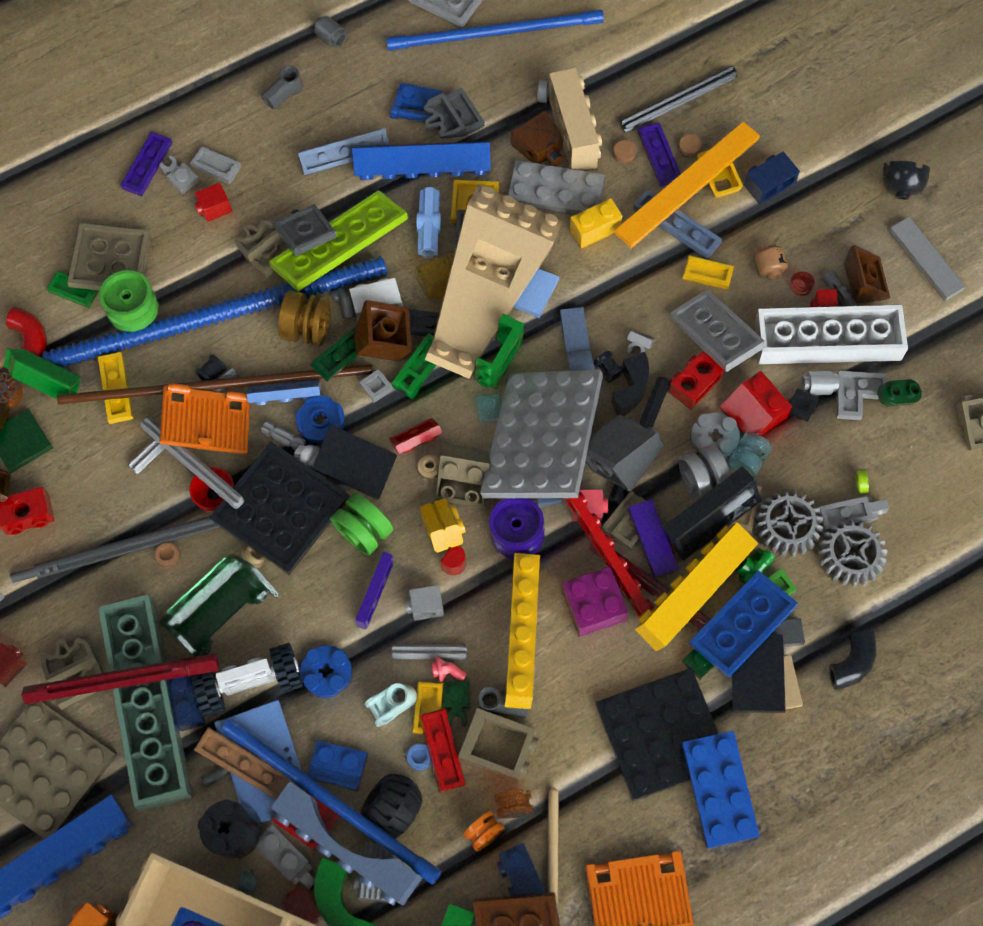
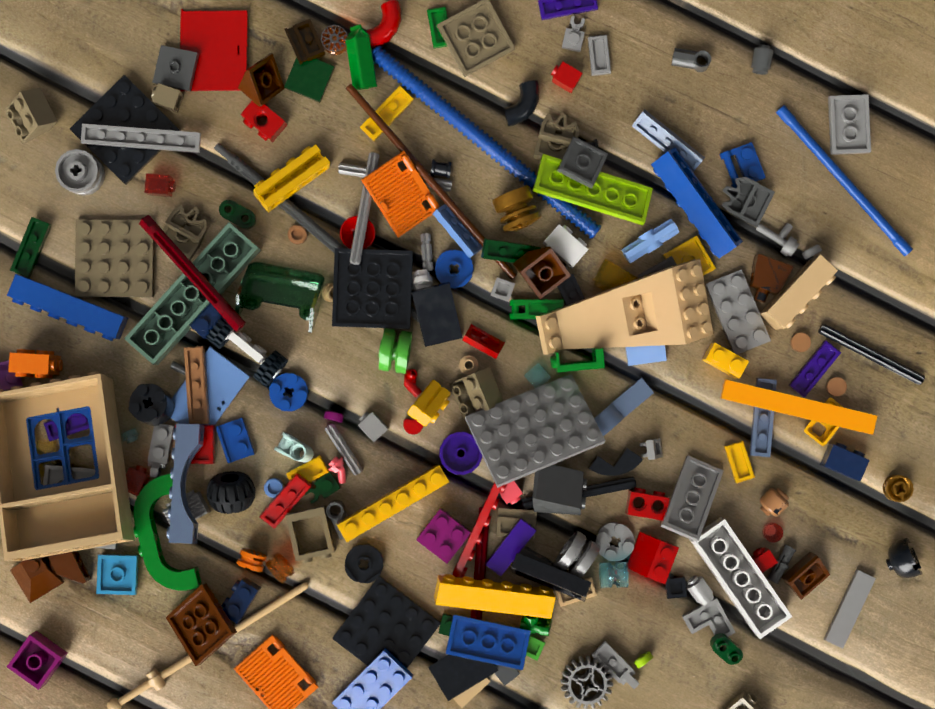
camera: 55 degrees right, 20 degrees up
(95, 600) = (237, 214): none -> dark green plate
(104, 519) = (291, 178): none -> yellow brick
(128, 300) = (448, 92): bright green wheel -> none
(210, 254) = (525, 106): none -> black cylinder
(346, 302) = (551, 225): dark grey arm -> none
(375, 590) = (359, 388): dark purple tile -> none
(386, 638) = (333, 416): none -> magenta tile
(406, 537) = (410, 382): none -> red arm
(417, 863) = (202, 537): blue piece -> none
(523, 107) = (789, 246): none -> light grey piece
(581, 699) = (364, 552): none -> black plate
(608, 366) = (619, 438): black bush -> none
(807, 519) = (591, 642): light grey gear -> none
(829, 147) = (898, 488): none -> pearl gold wheel

